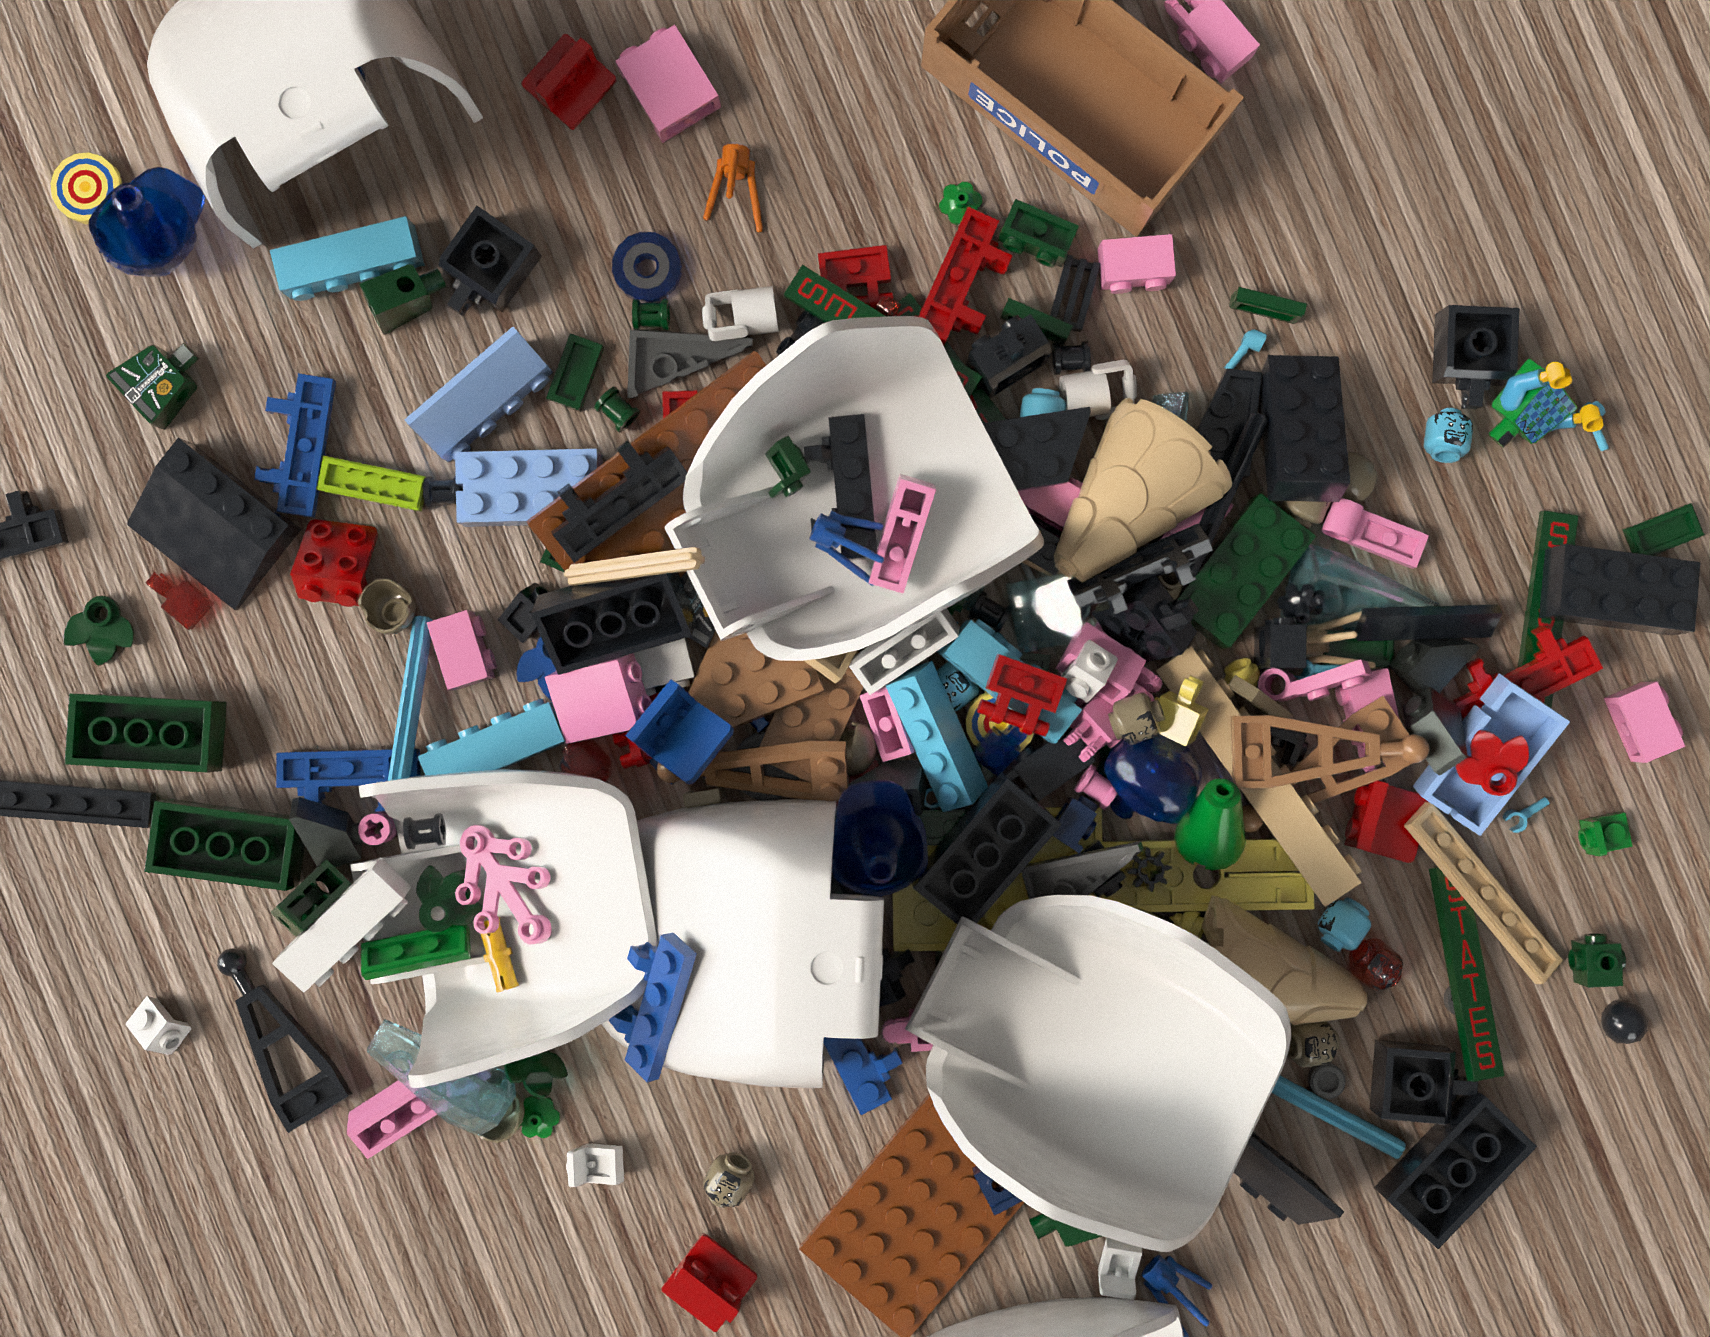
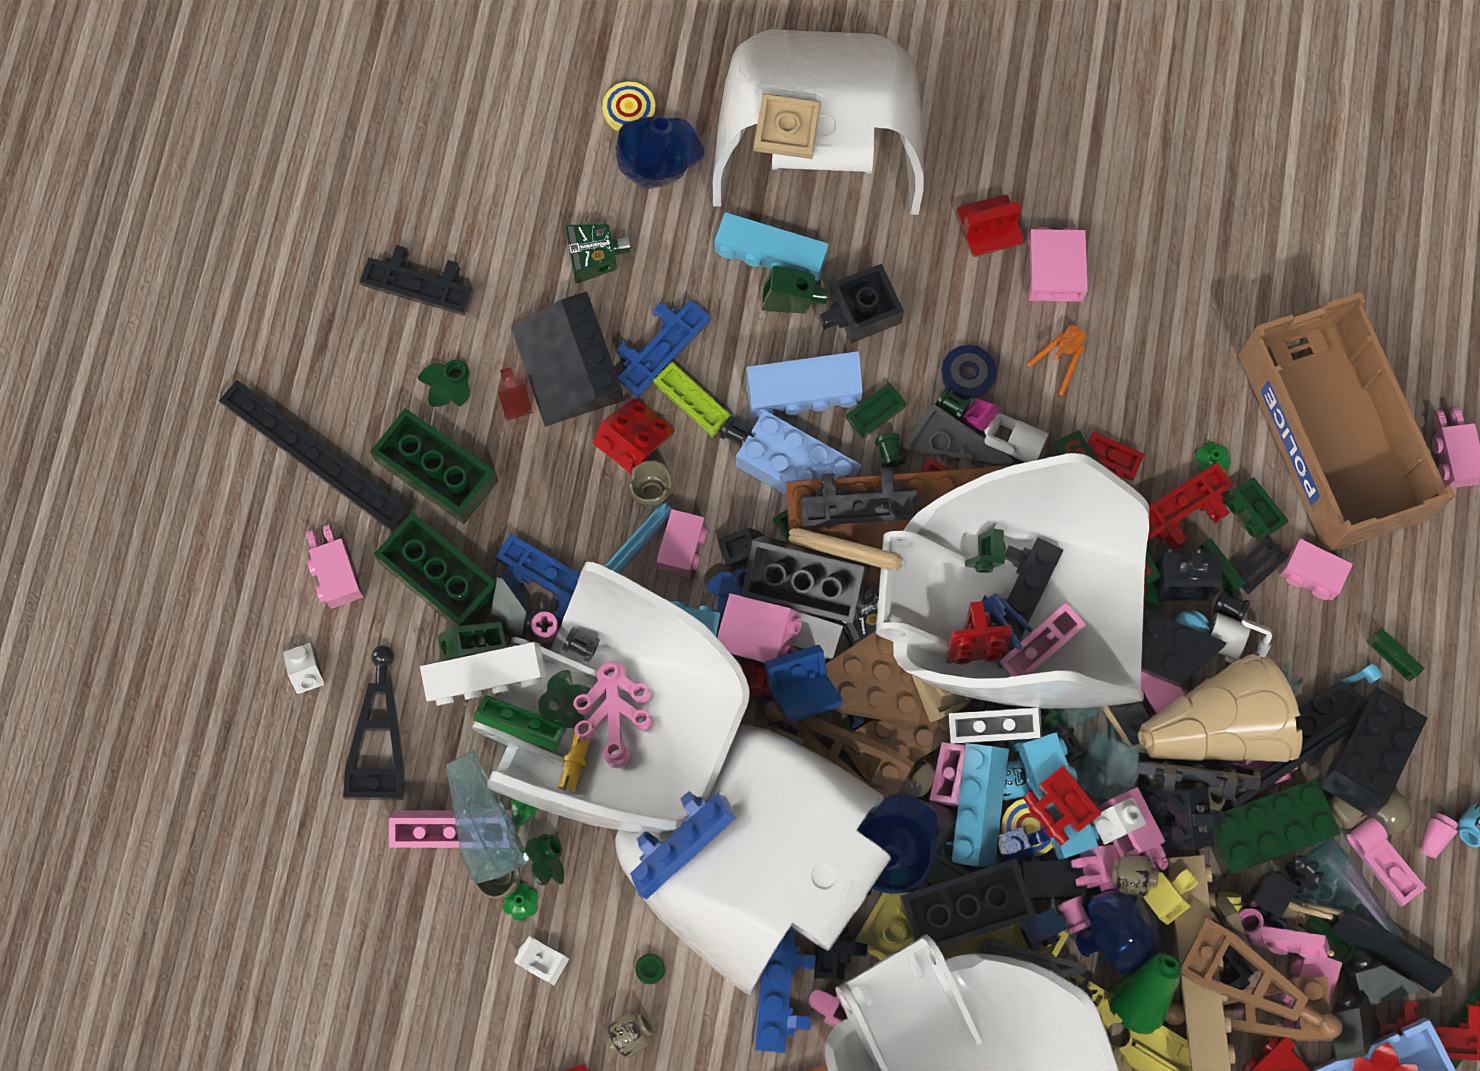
camera: 35 degrees right, 15 degrees down
(116, 906) = (333, 569): none -> bright pink hinge
(251, 132) = (787, 126): none -> tan plate
(687, 309) = (980, 414): none -> dark pink tile
(708, 1101) = (650, 969): none -> dark green tile
(834, 577) = (978, 638): none -> red bracket
(1411, 471) = (1438, 835): none -> bright pink cone

